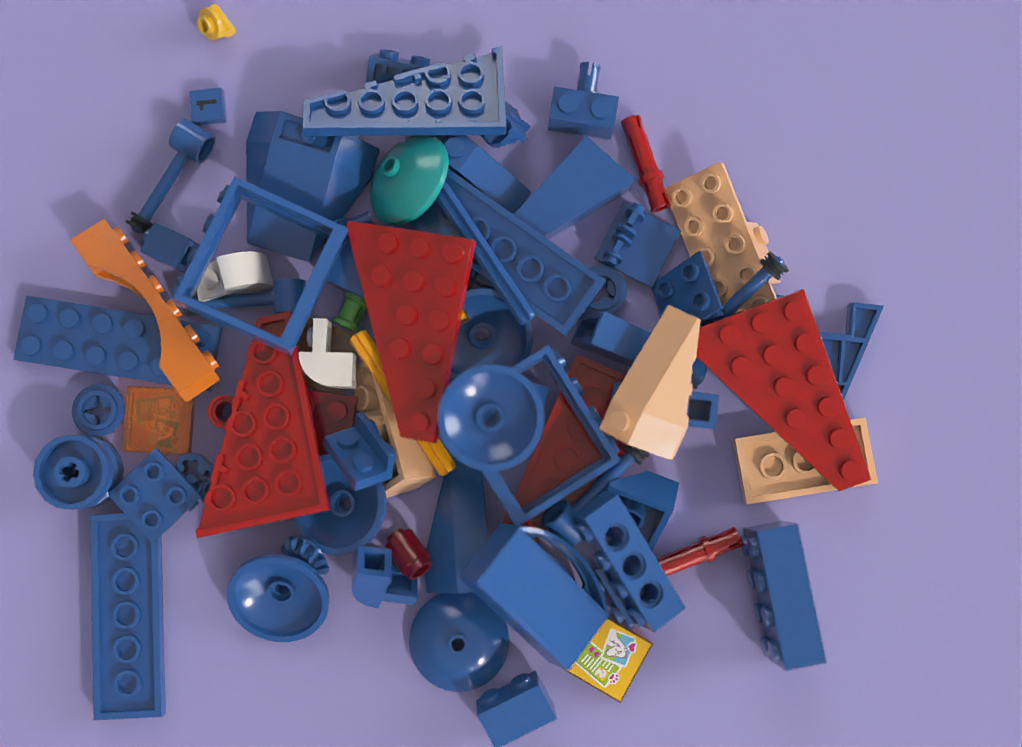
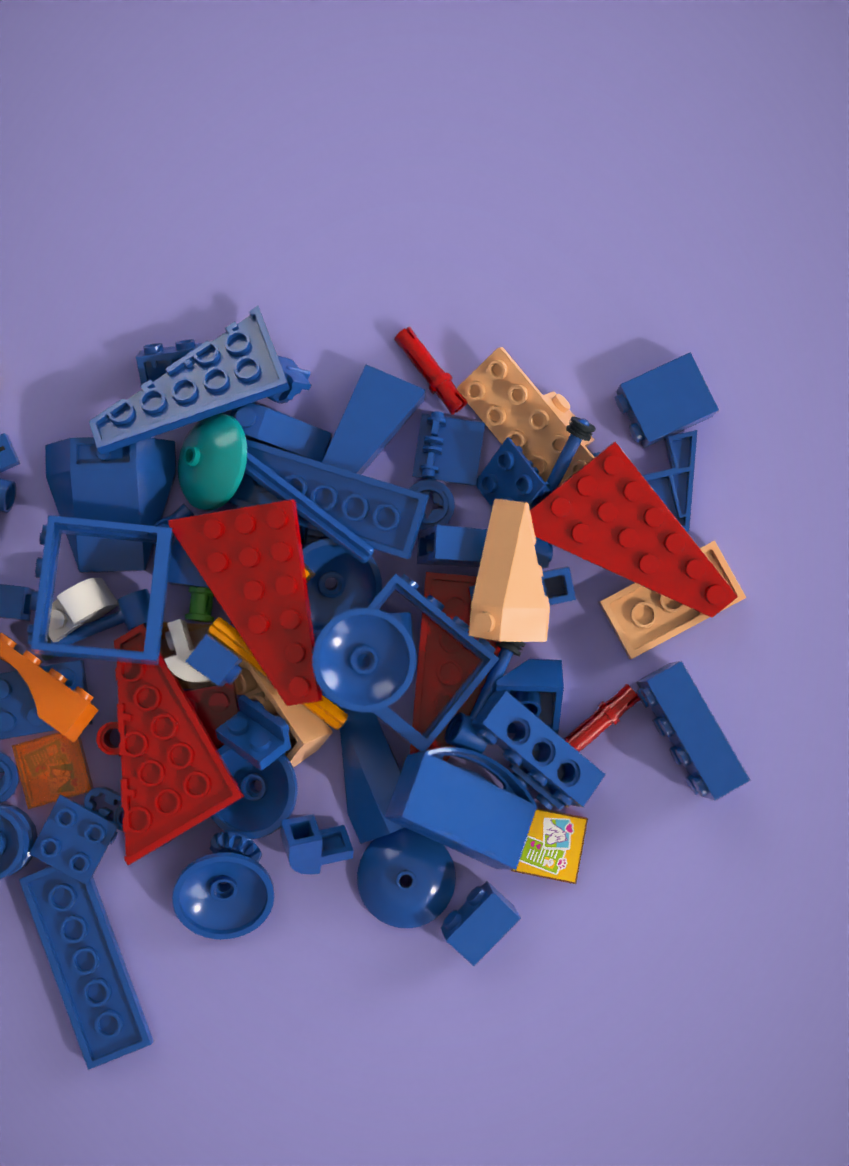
camera: 15 degrees left, 0 degrees up
(346, 370) = (215, 661): none -> blue brick
(408, 553) = (331, 812): dark red brick -> none
(583, 109) = (354, 339): blue brick -> none
(863, 267) = (666, 400): none -> blue brick

